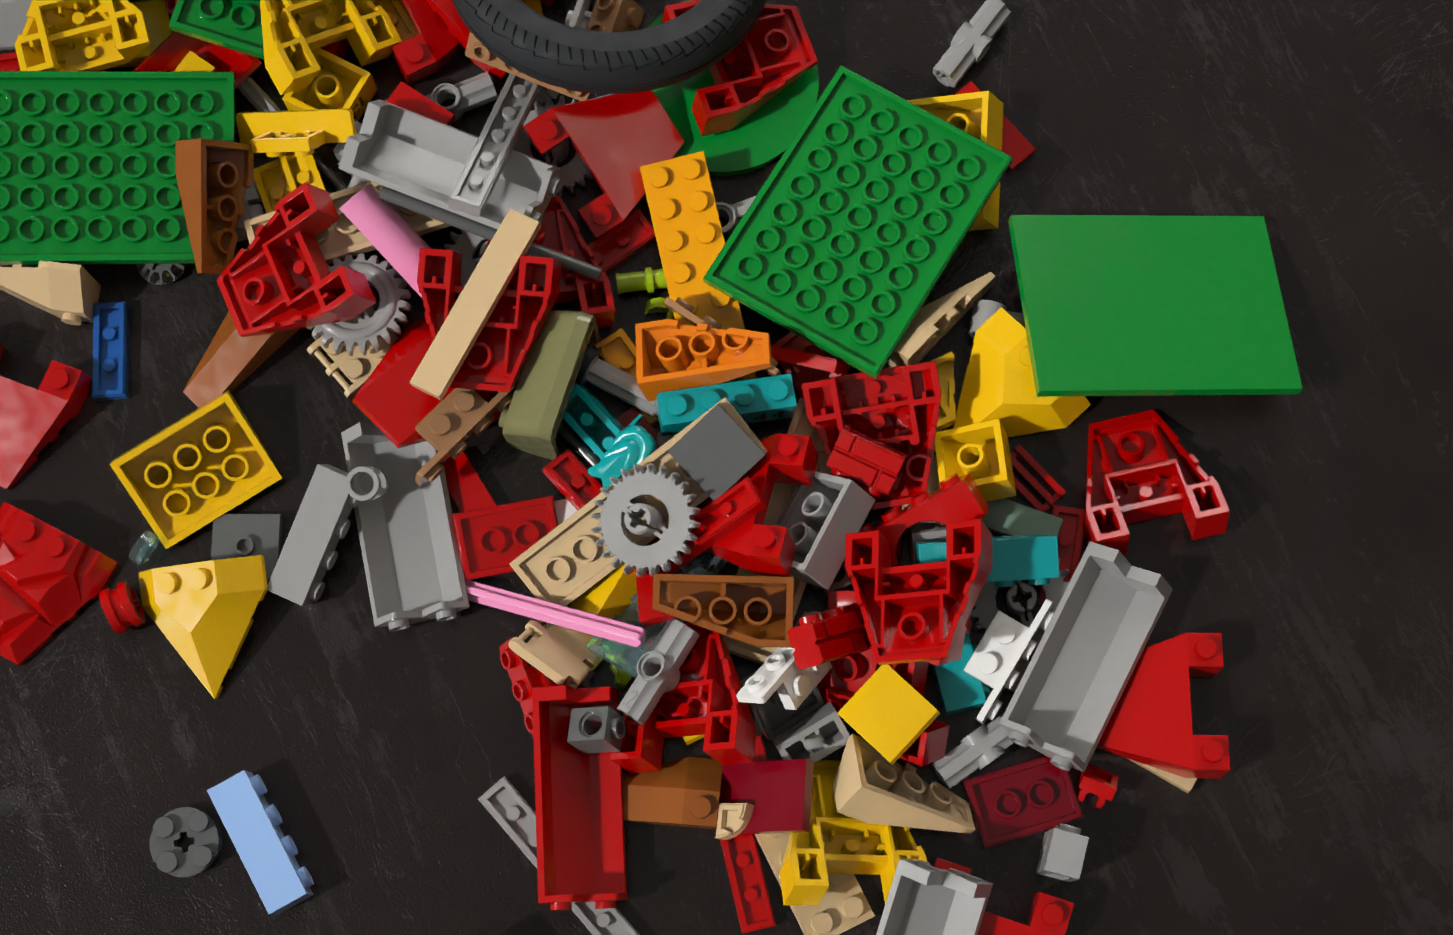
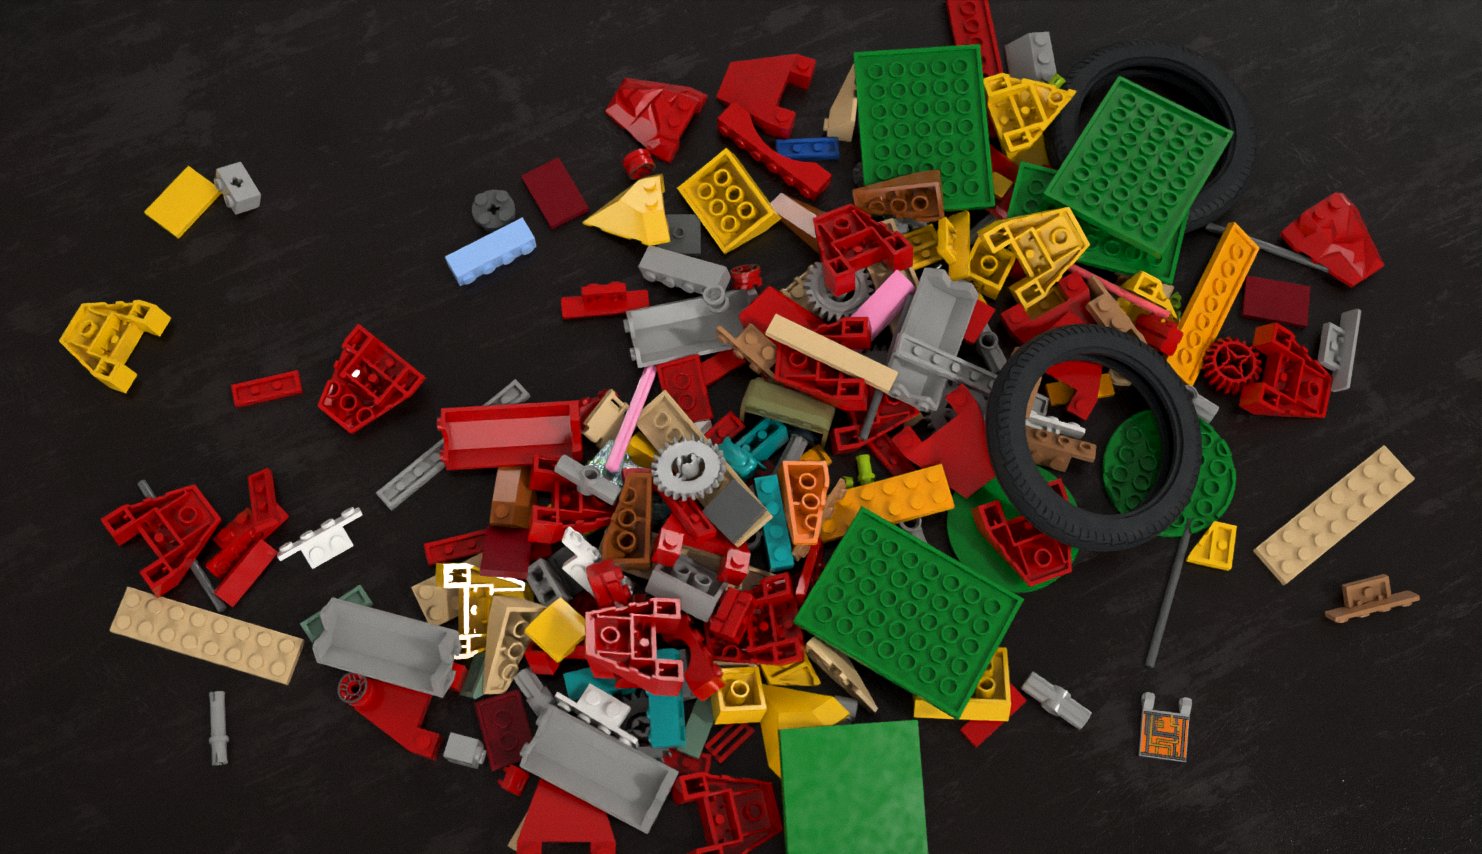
camera: 80 degrees right, 5 degrees down
(66, 451) = (805, 176): none -> red arch
(144, 548) = (677, 175): clear light blue tile -> none
(160, 744) = (555, 193): none -> dark red tile
(326, 442) = (746, 276): none -> red wheel
(355, 661) = (603, 300): none -> red bracket
(585, 731) = (553, 443): dark grey brick -> none
(732, 819) = (493, 532): tan tile -> none
(949, 846) = (473, 682): none -> sand green slope

